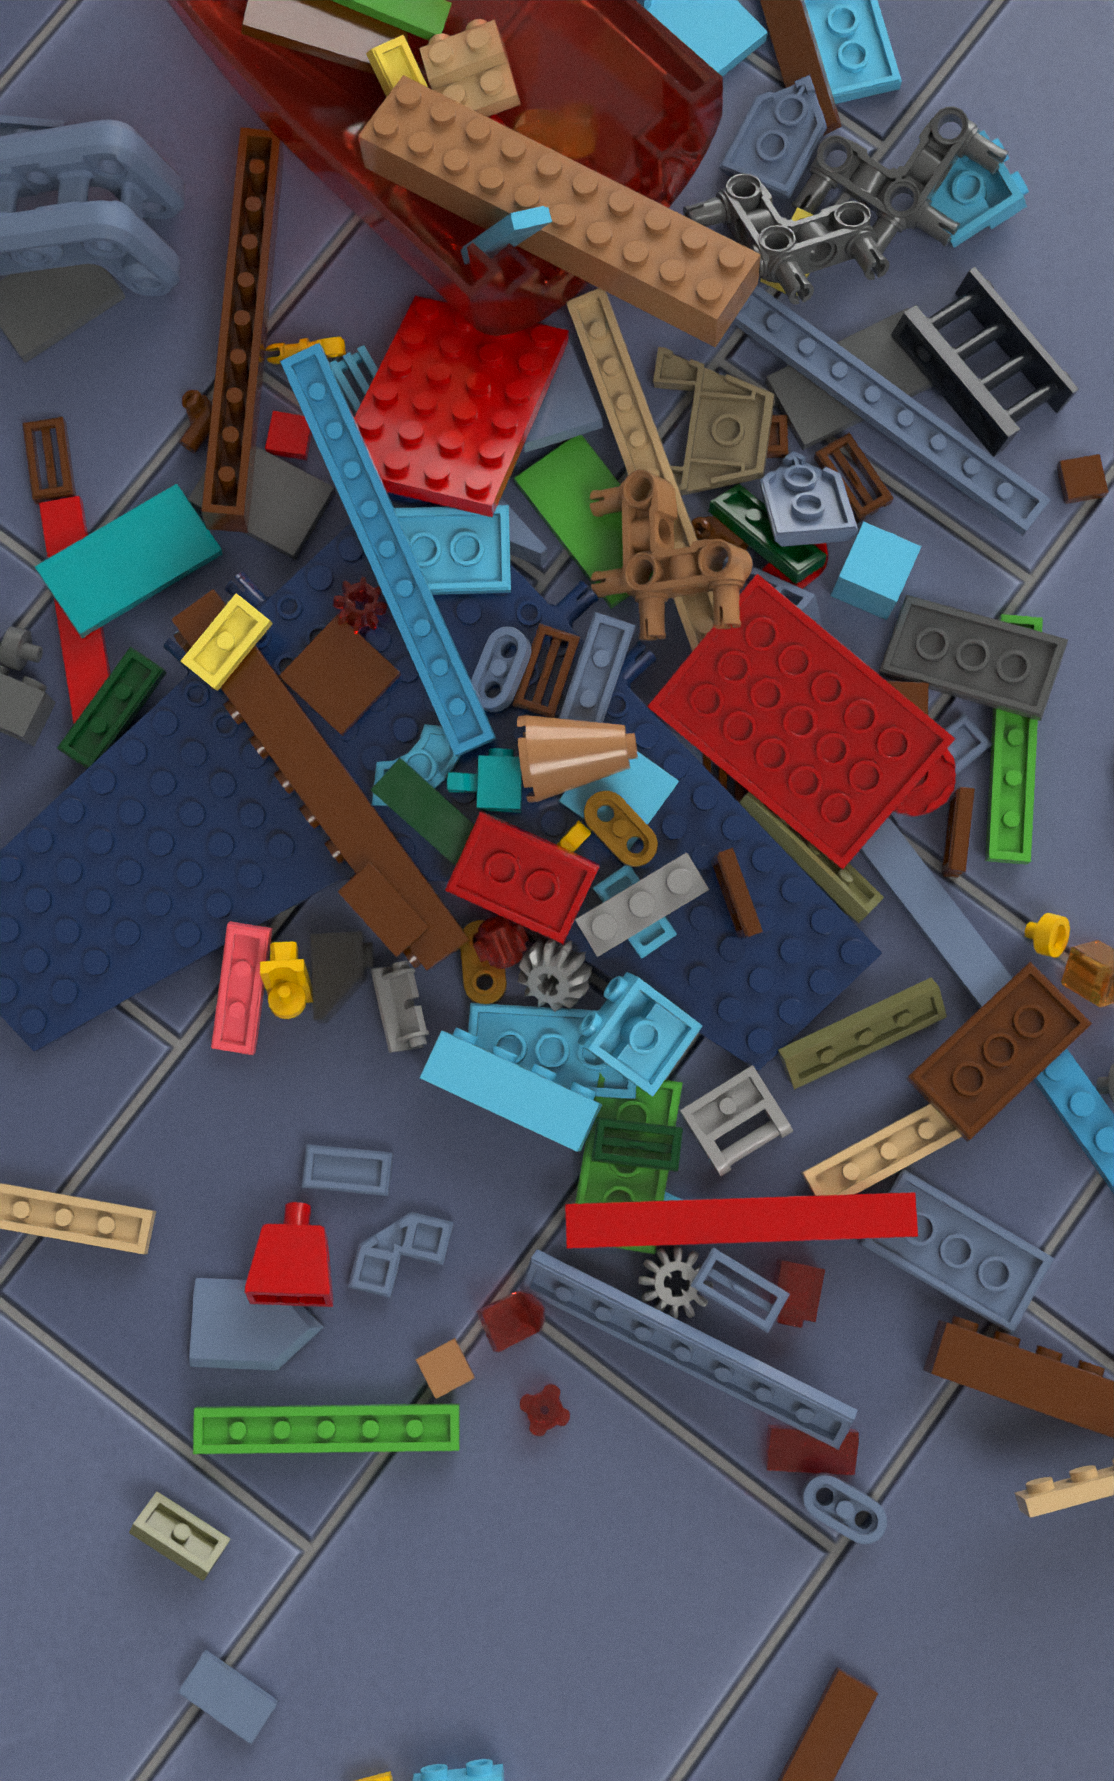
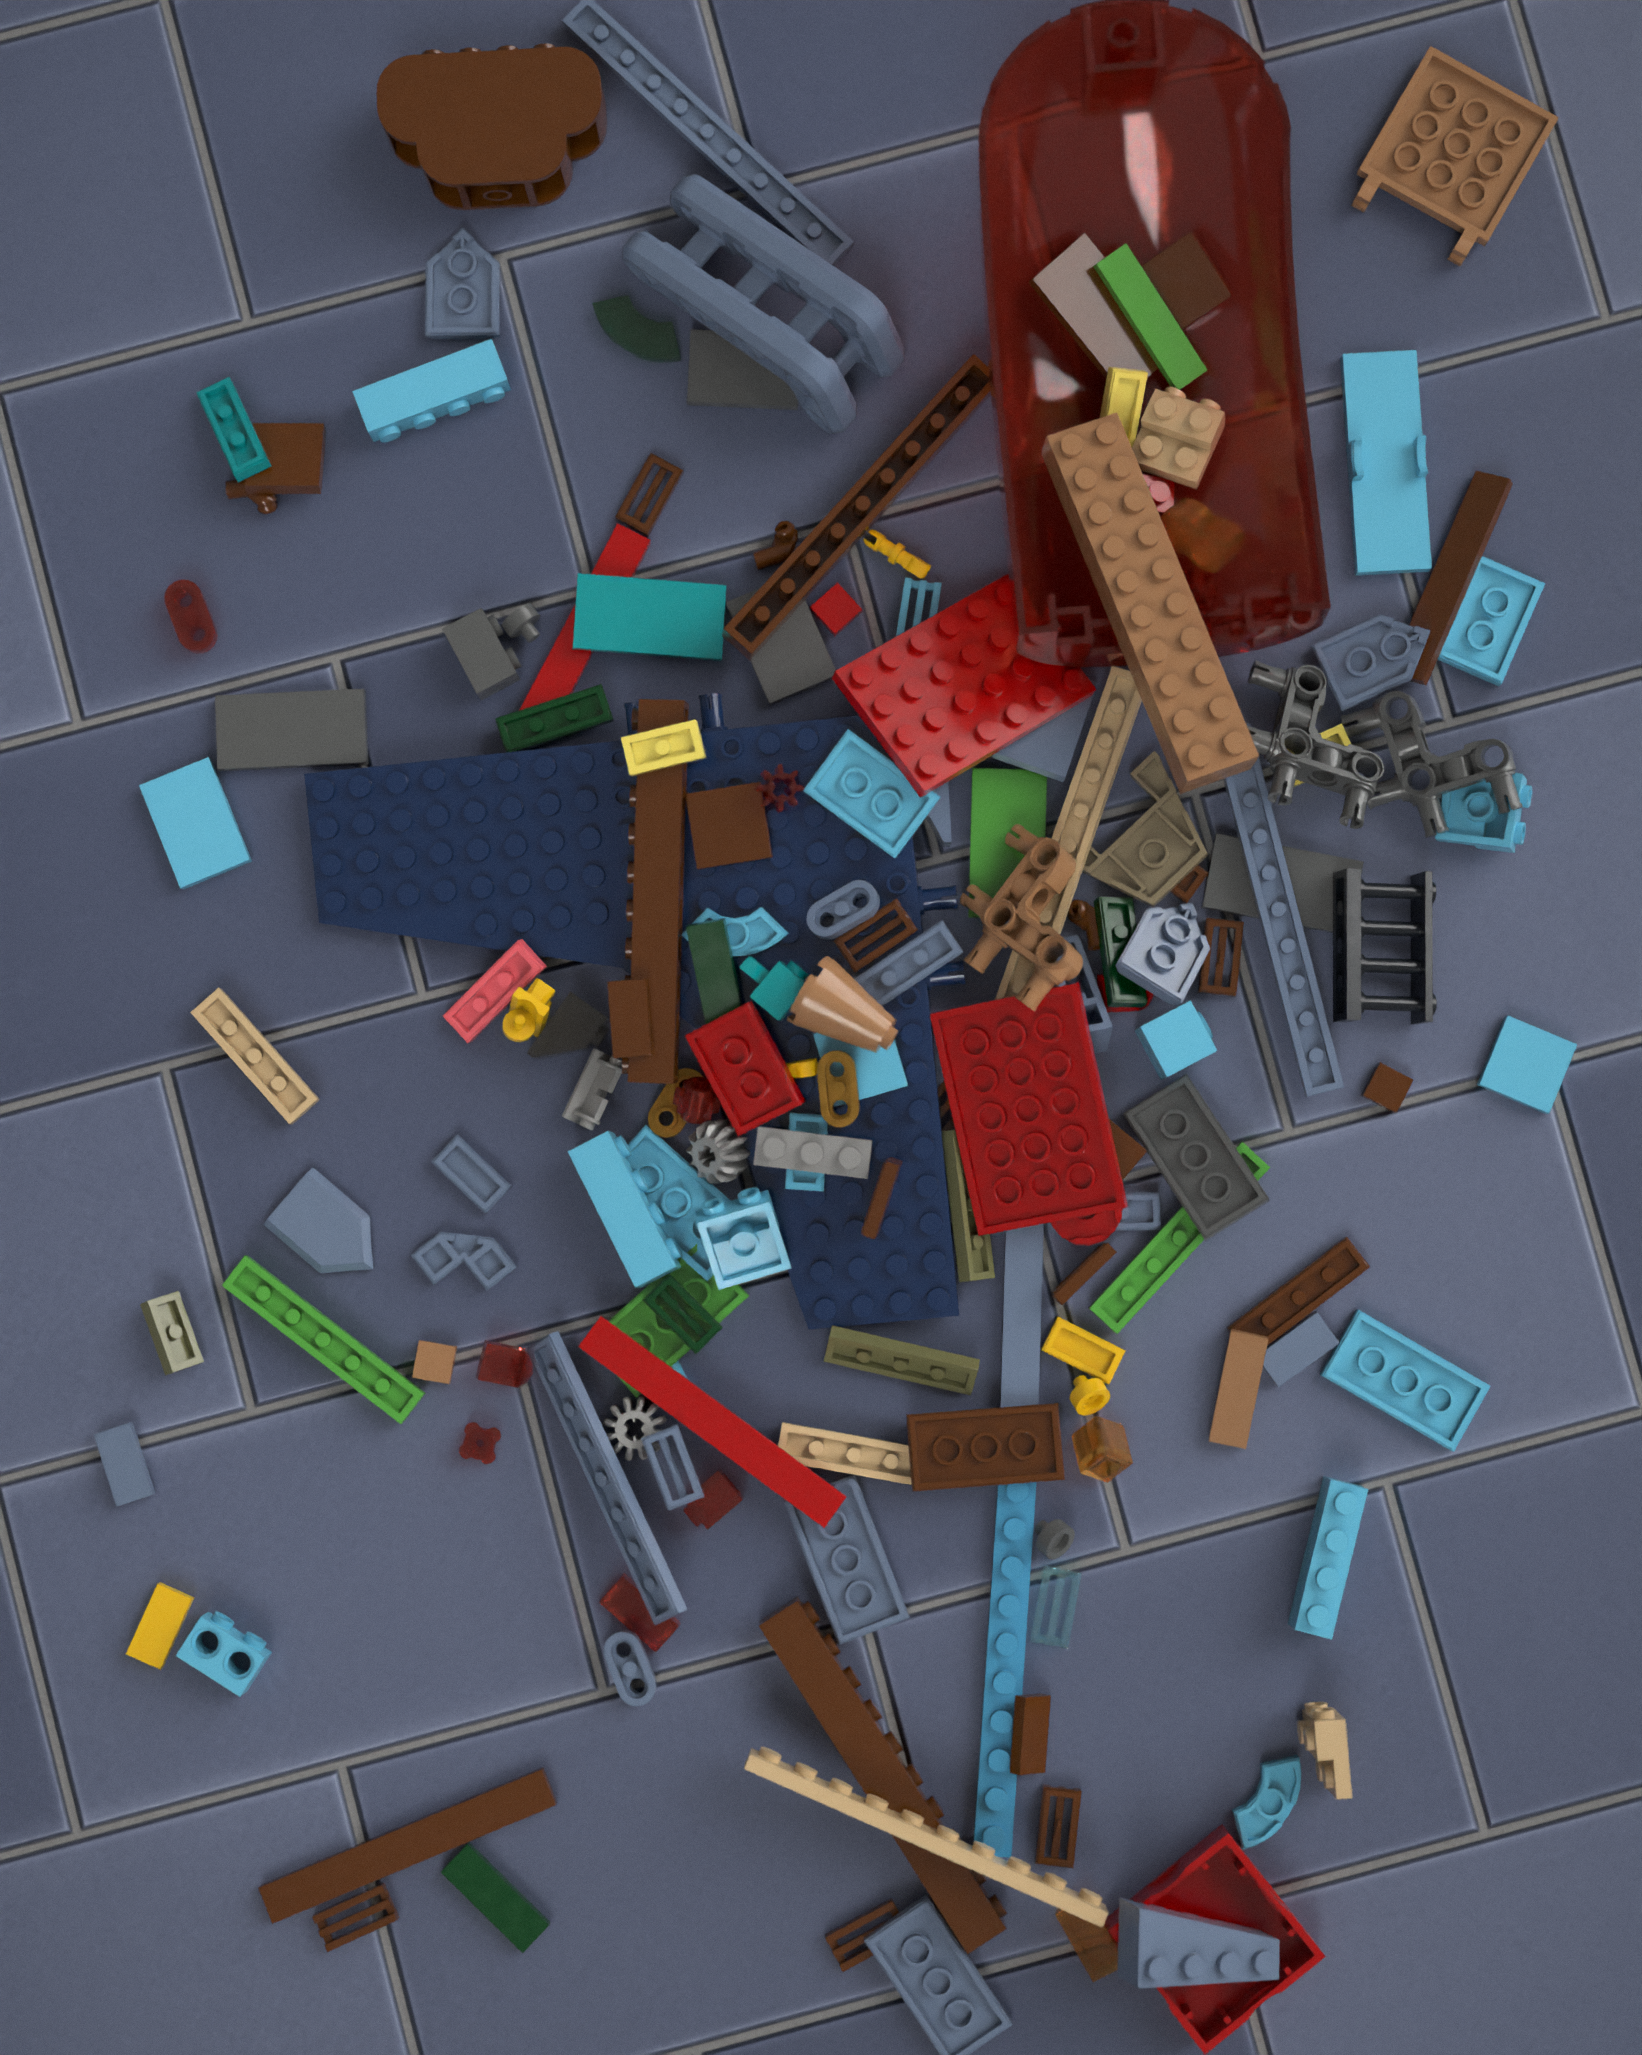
camera: 40 degrees right, 5 degrees up
(291, 1262) = (385, 1208): red torso -> none
(388, 550) = (827, 765): dark azure plate -> none
(511, 229) = (1091, 597): medium azure tile -> none
(729, 1107) = (767, 1338): light grey plate -> none
(1010, 901) = (1082, 1350): none -> yellow tile

